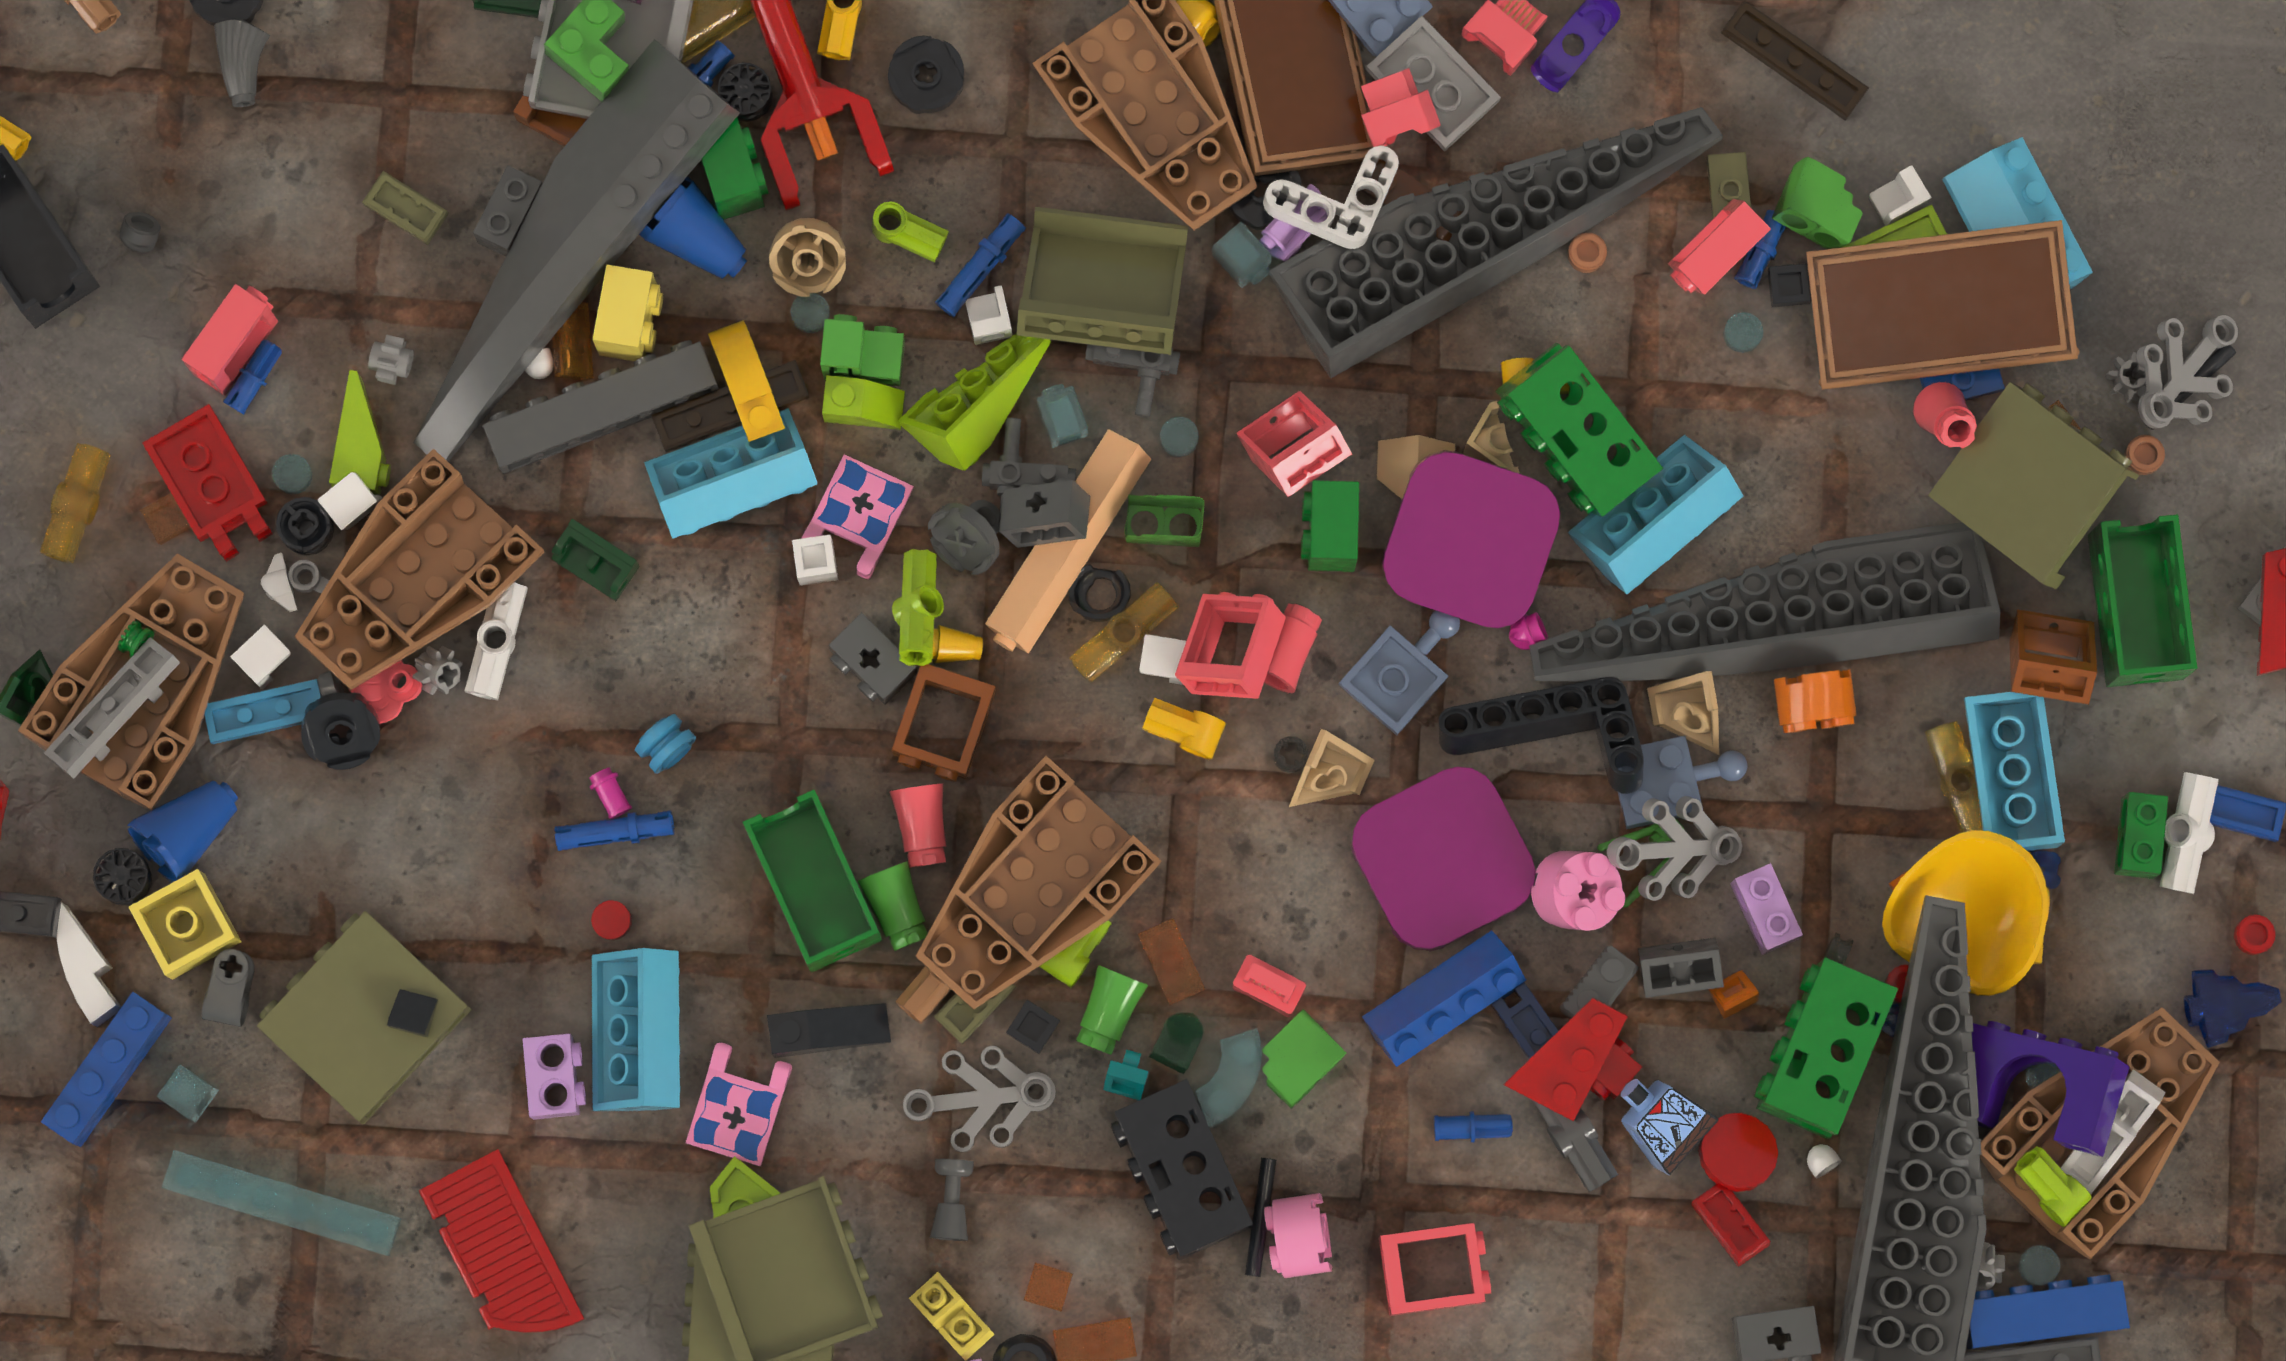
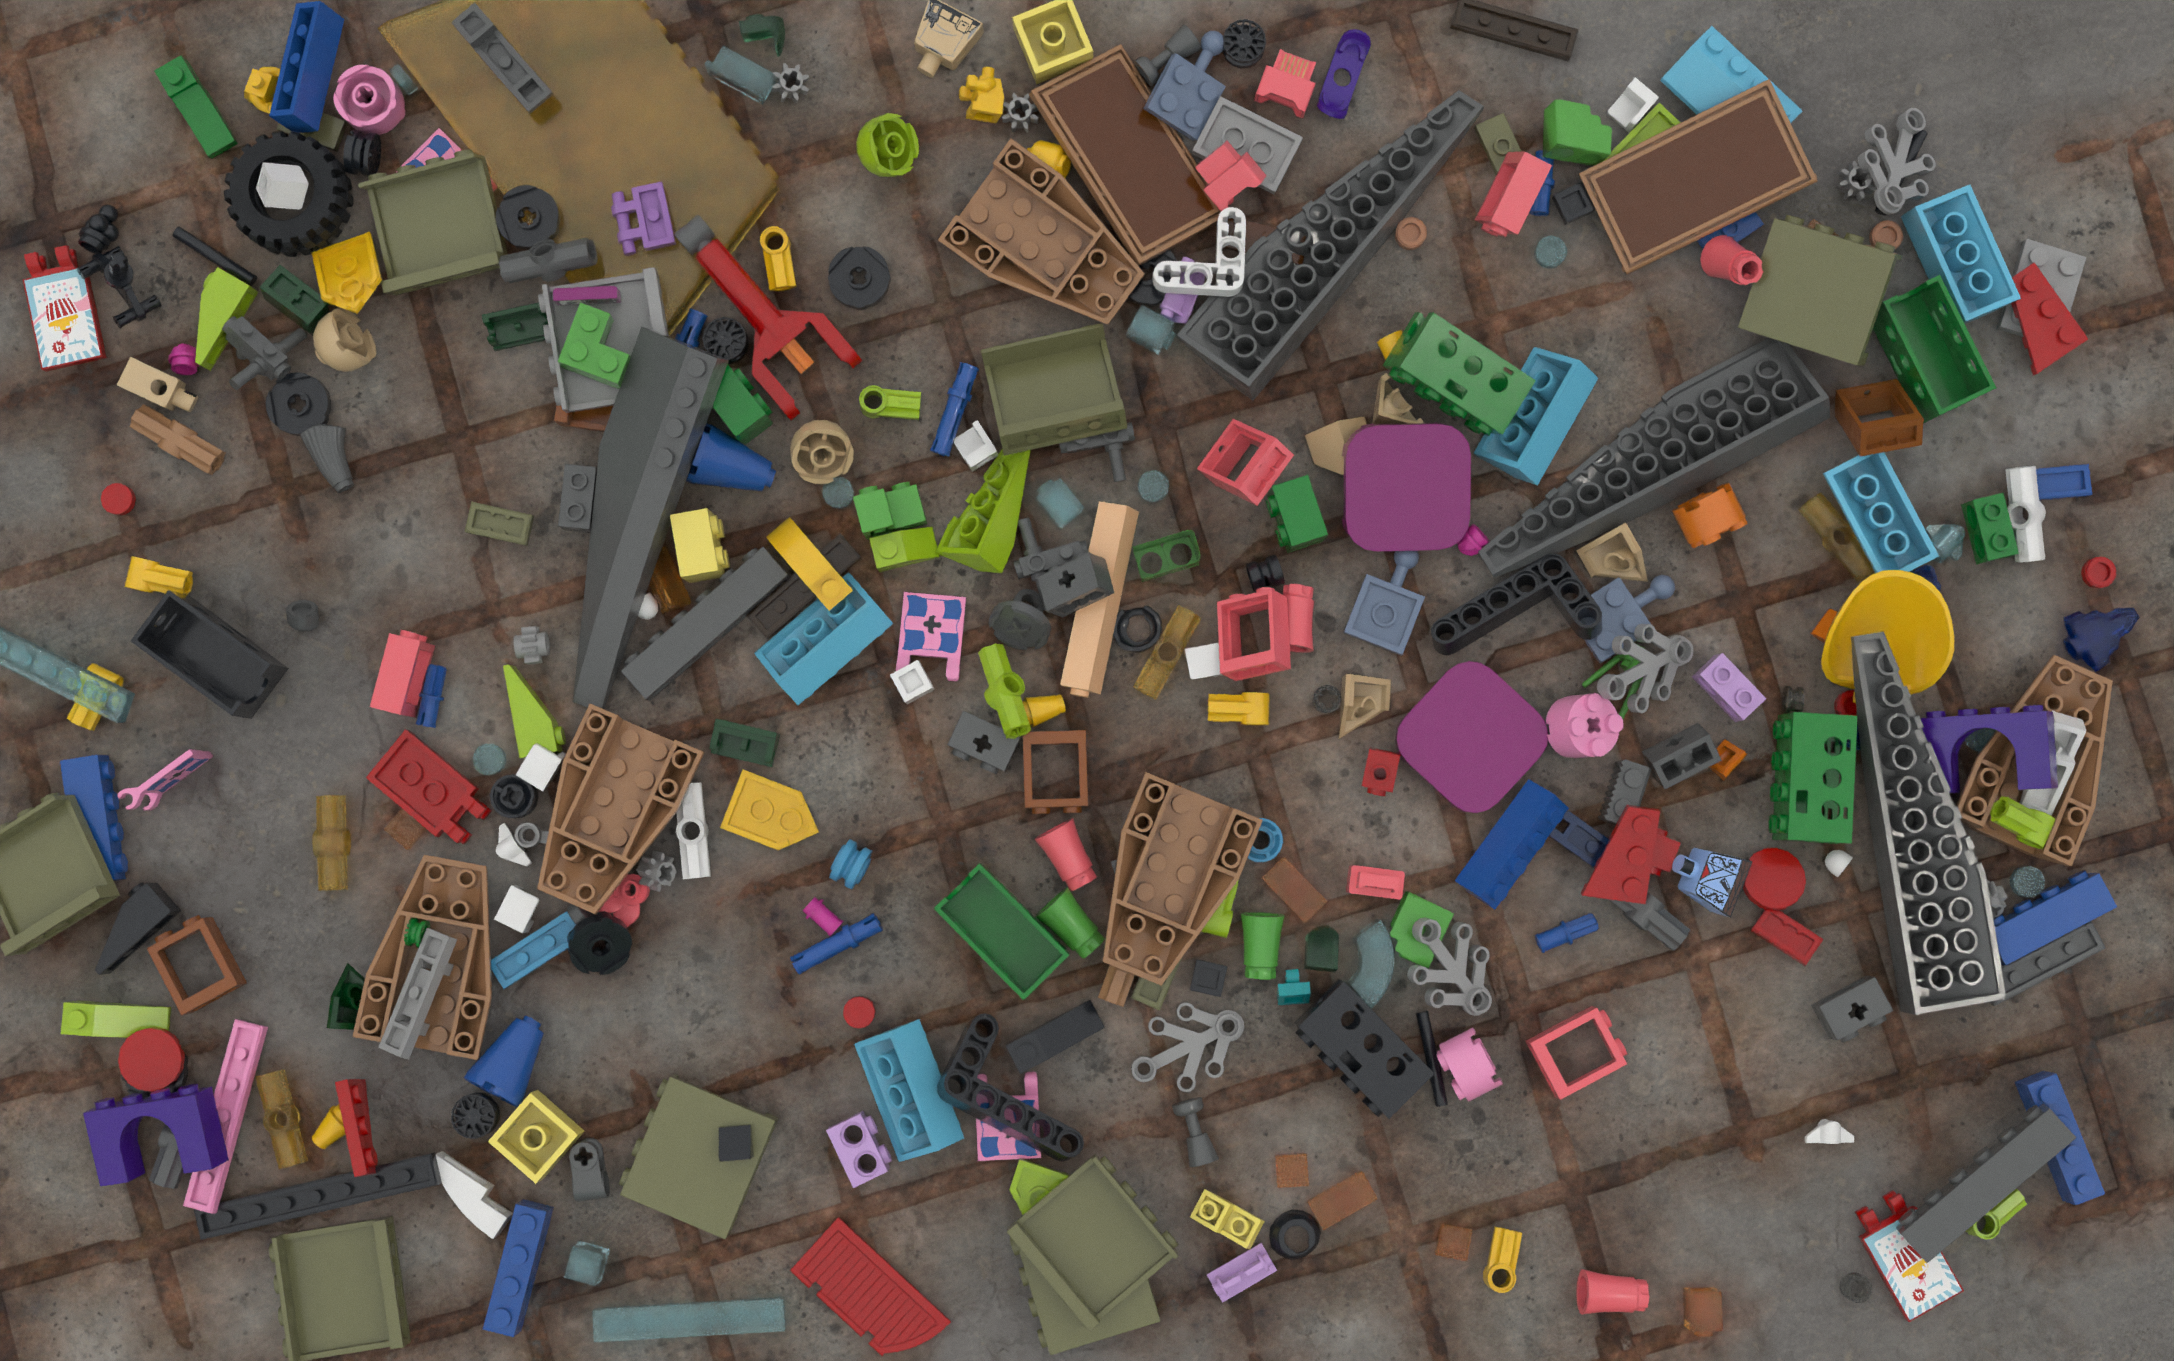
camera: 15 degrees left, 5 degrees up
(591, 651) = (768, 812): none -> yellow tile
(739, 1078) = (999, 1100): none -> black beam
(1165, 902) = (1274, 844): none -> dark azure wheel
(1273, 581) = (1265, 573): none -> black wheel
(1321, 858) = (1380, 771): none -> red brick
(1323, 1117) = (1454, 968): none -> light grey plant
(2084, 832) = (1947, 540): none -> clear light blue piece
(2220, 505) = (1960, 248): none -> medium azure slope

